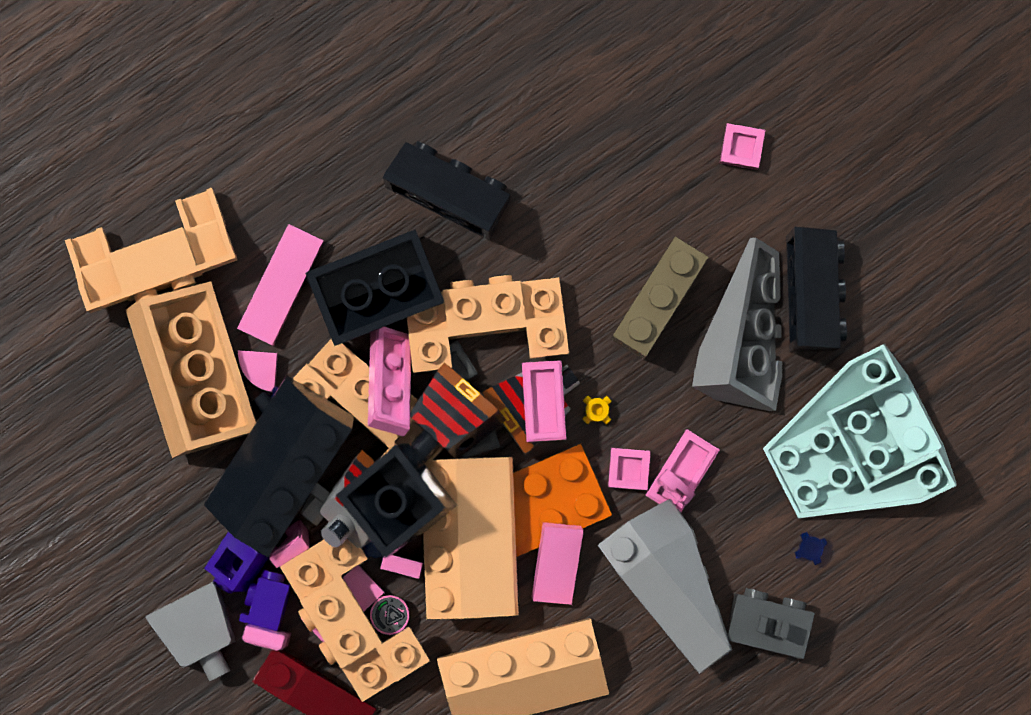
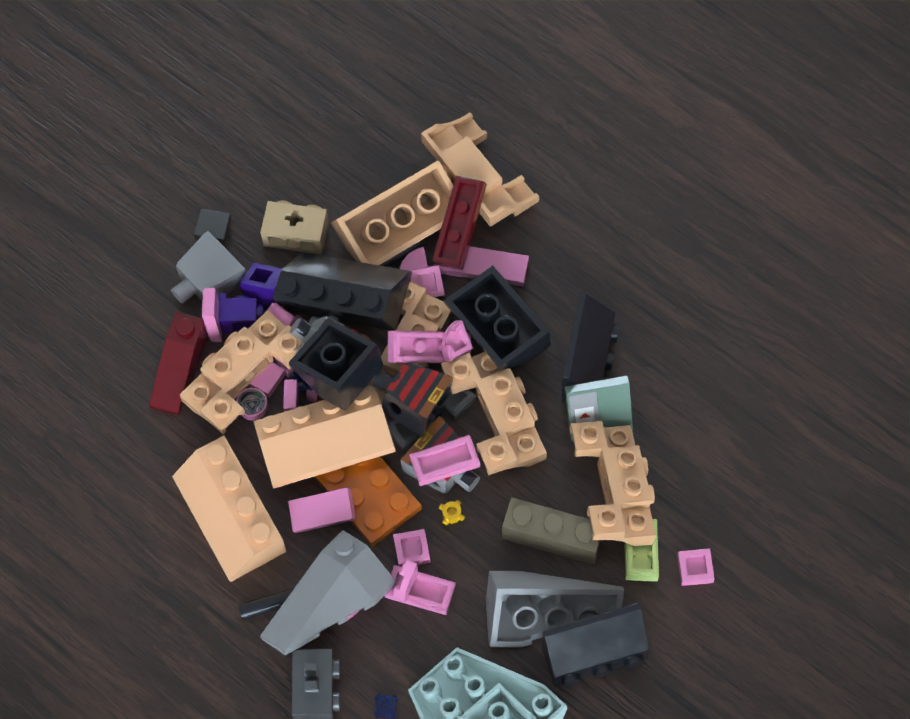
camera: 80 degrees right, 20 degrees down
(128, 608) = (215, 222): none -> dark grey tile
(182, 492) = (280, 230): none -> tan brick
(227, 297) = (459, 222): none -> dark red tile
(287, 357) = (429, 278): none -> bright pink tile
(391, 347) = (455, 341): none -> bright pink tile
(525, 198) = (600, 401): none -> sand green tile
(625, 199) = (623, 483): none -> light nougat bracket
(651, 653) = (264, 604): none -> black piece
(707, 202) = (642, 561): none -> yellowish green plate

